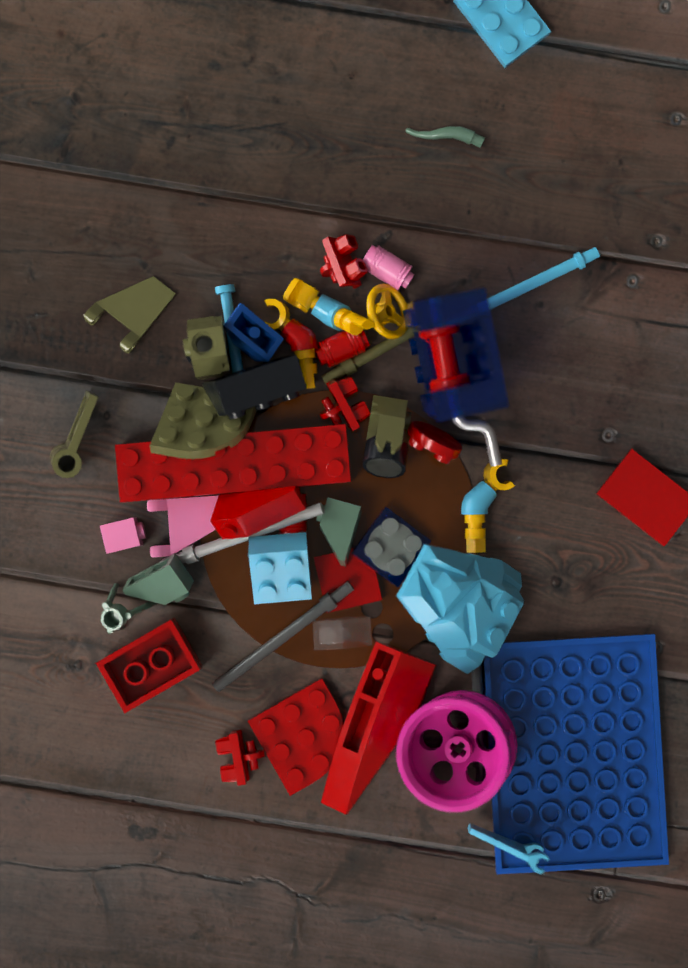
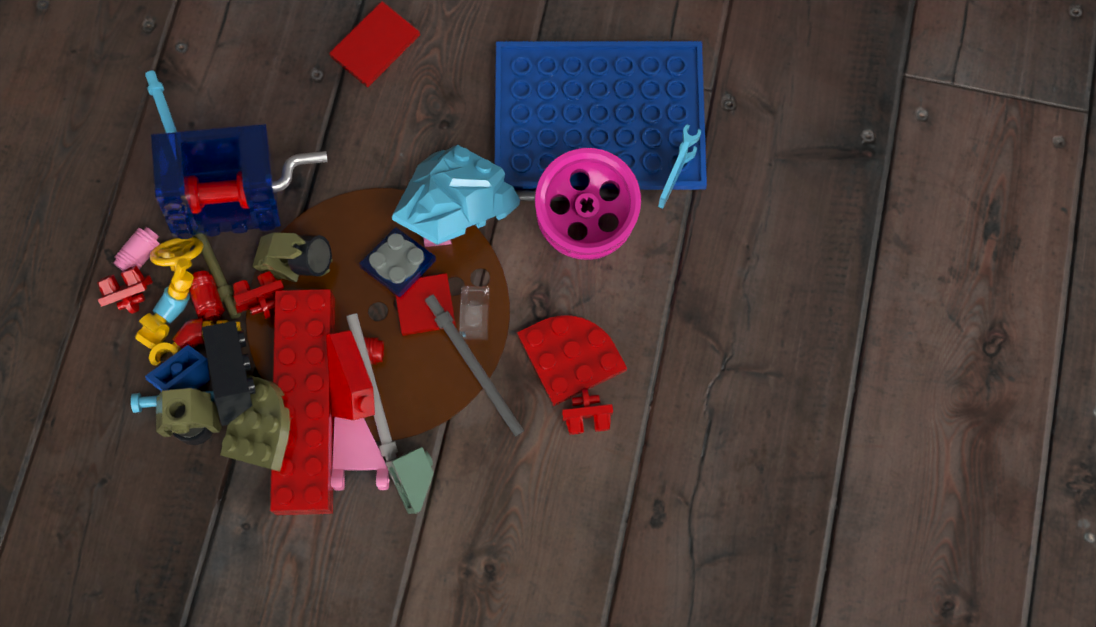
camera: 85 degrees left, 15 degrees down
(64, 457) = (275, 556): olive piece -> none
(117, 615) = (437, 516): sand green plant -> none
(122, 534) = (362, 513): bright pink brick -> none
(134, 308) = (142, 491): olive flag -> none
(149, 665) = (491, 491): red brick -> none
(280, 568) = (406, 359): medium azure brick -> none
(340, 527) = (375, 305): sand green slope -> none
(383, 702) = (561, 282): red wedge -> none
(435, 440) = (307, 208): red tile -> none
(456, 132) = (22, 186): sand green animal -> none
(476, 505) = (363, 183): piece -> none

